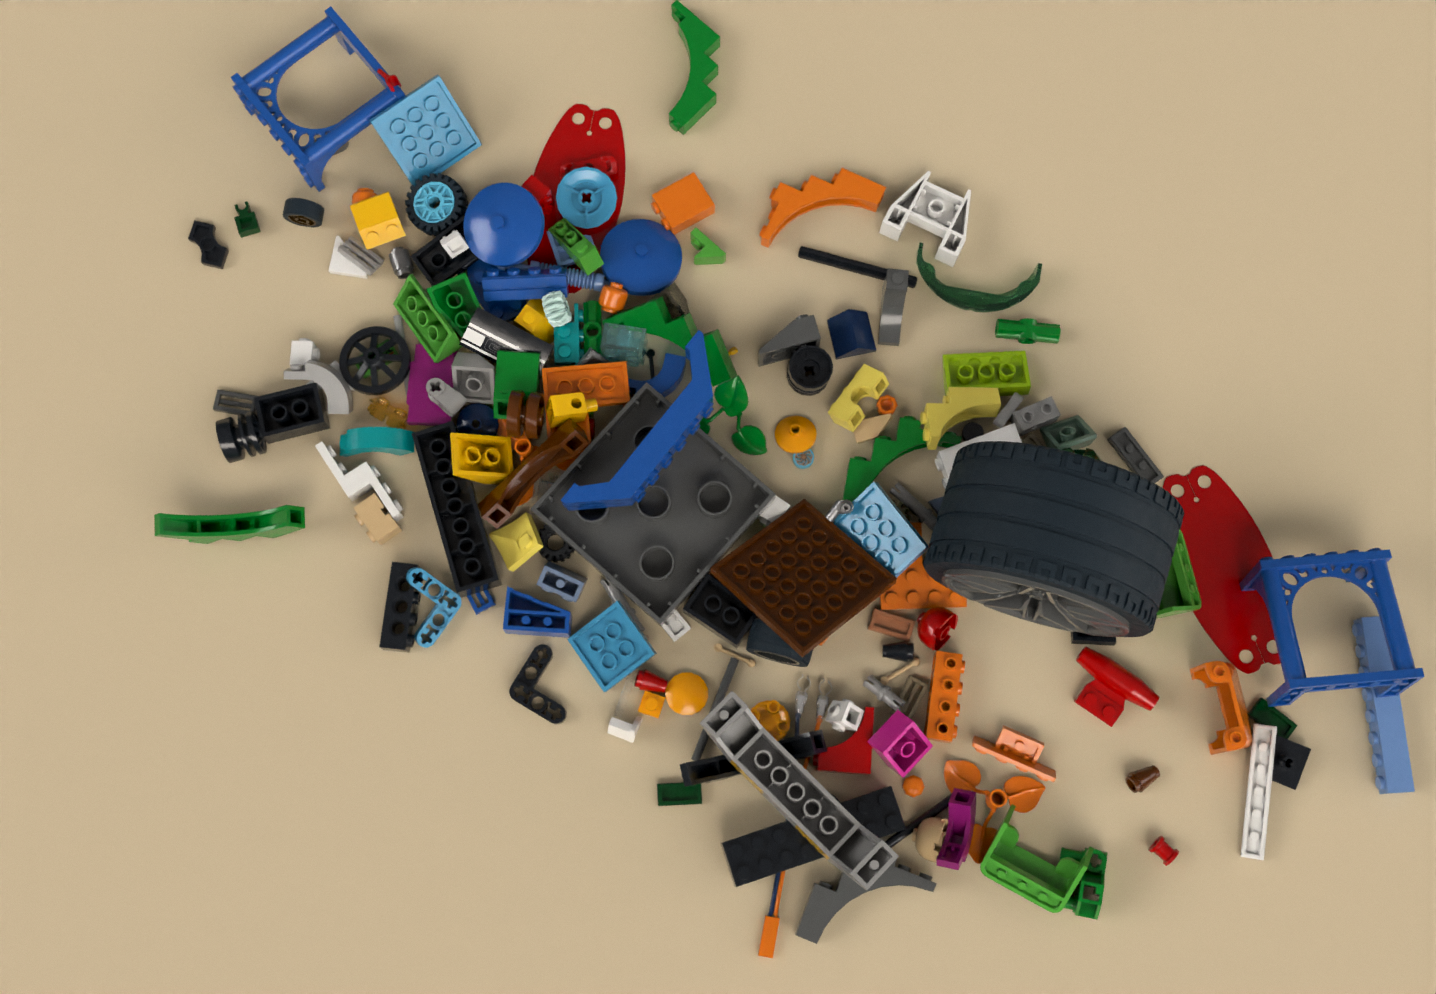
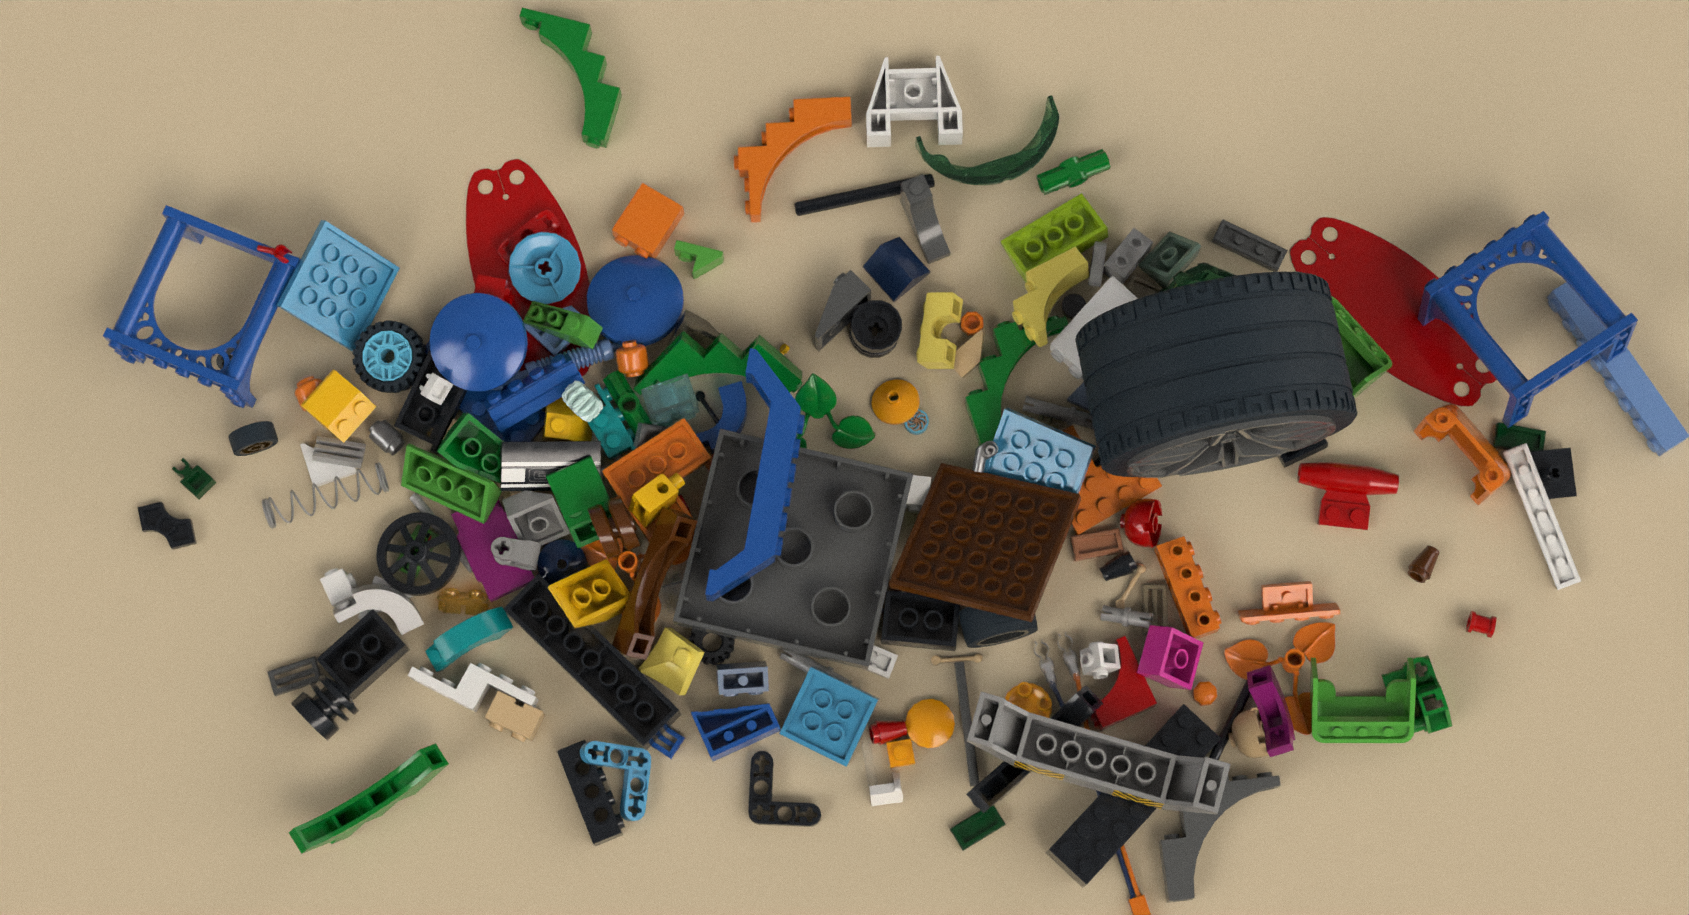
camera: 25 degrees left, 0 degrees up
(288, 277) = (266, 504): none -> light grey piece

